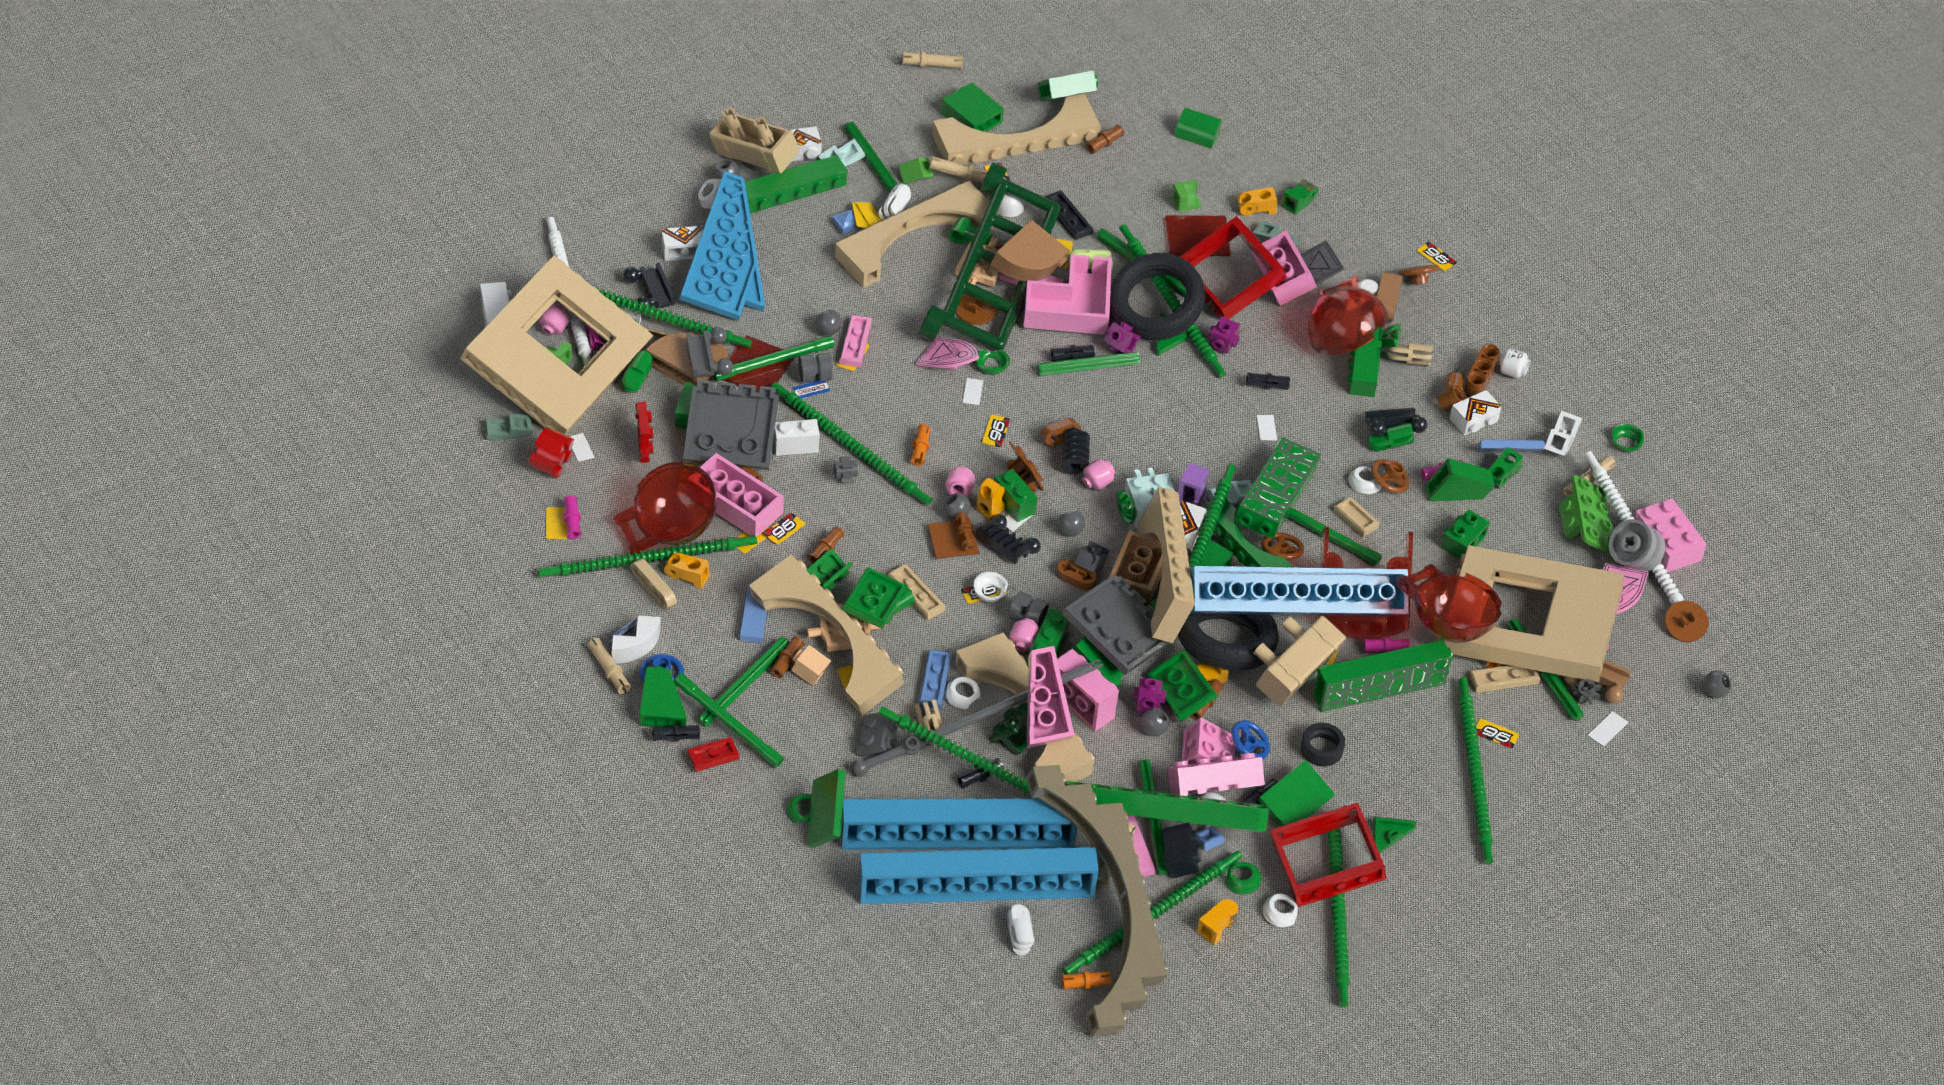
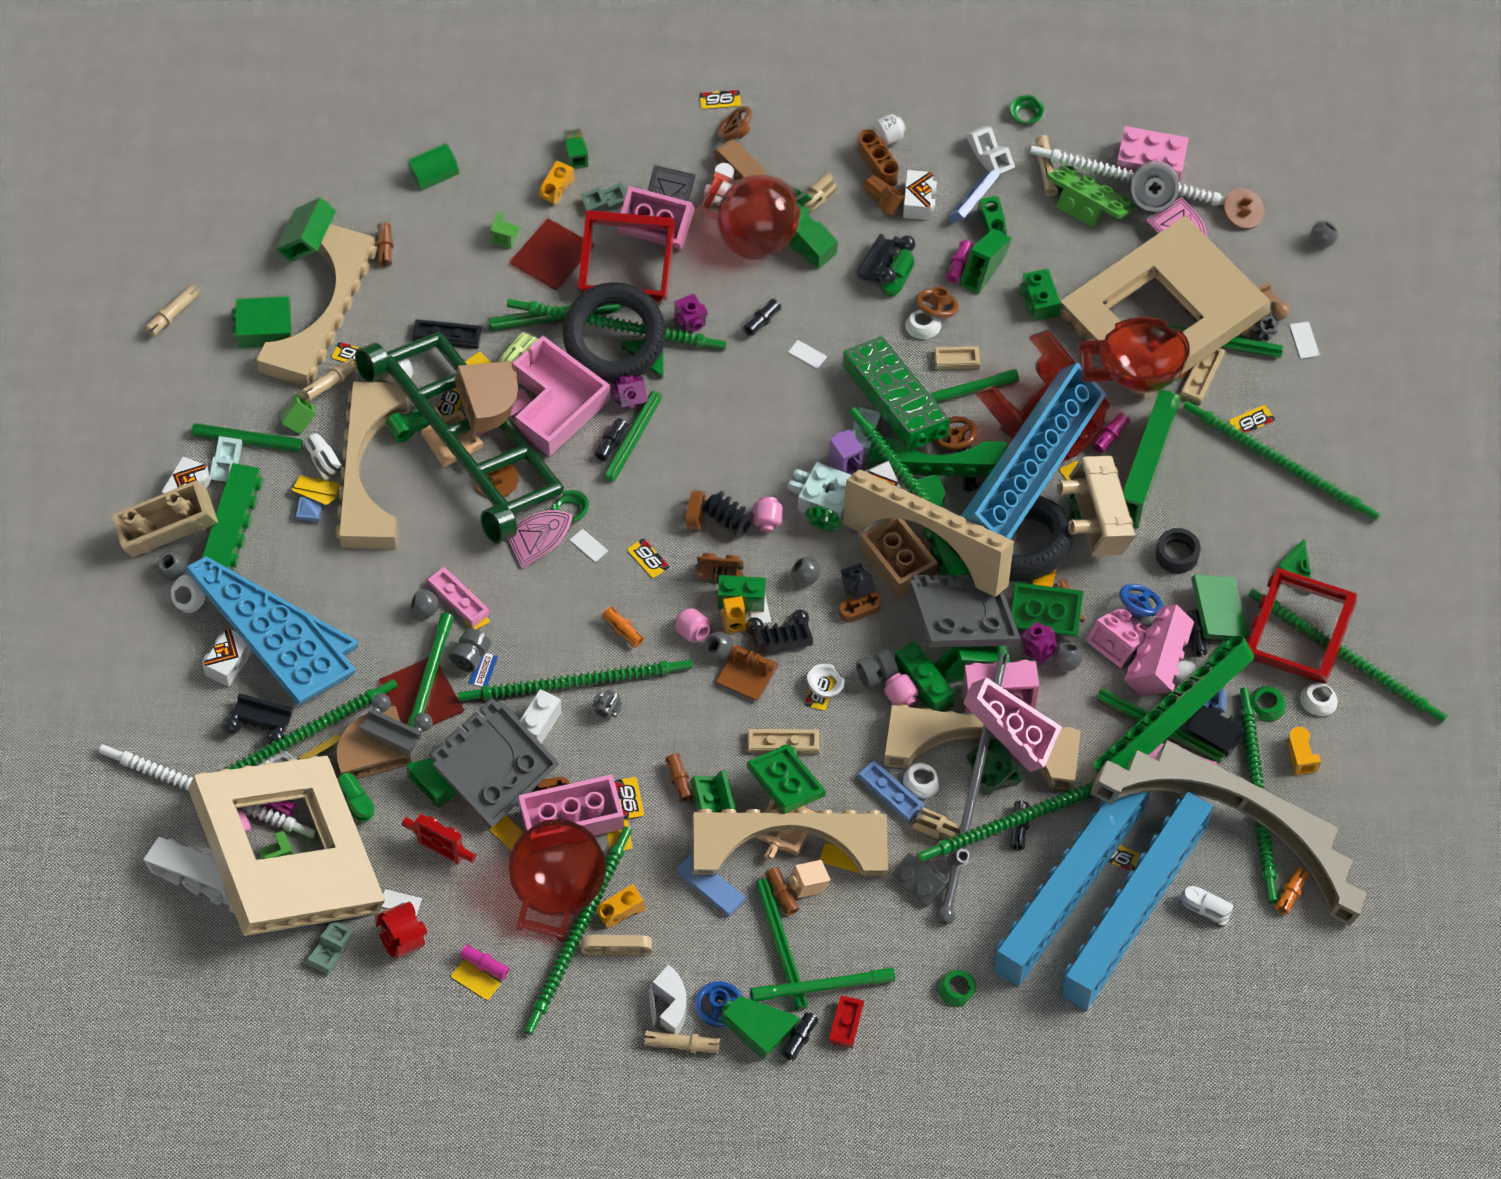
camera: 50 degrees left, 10 degrees up
(826, 808) = (987, 970): green tile -> none

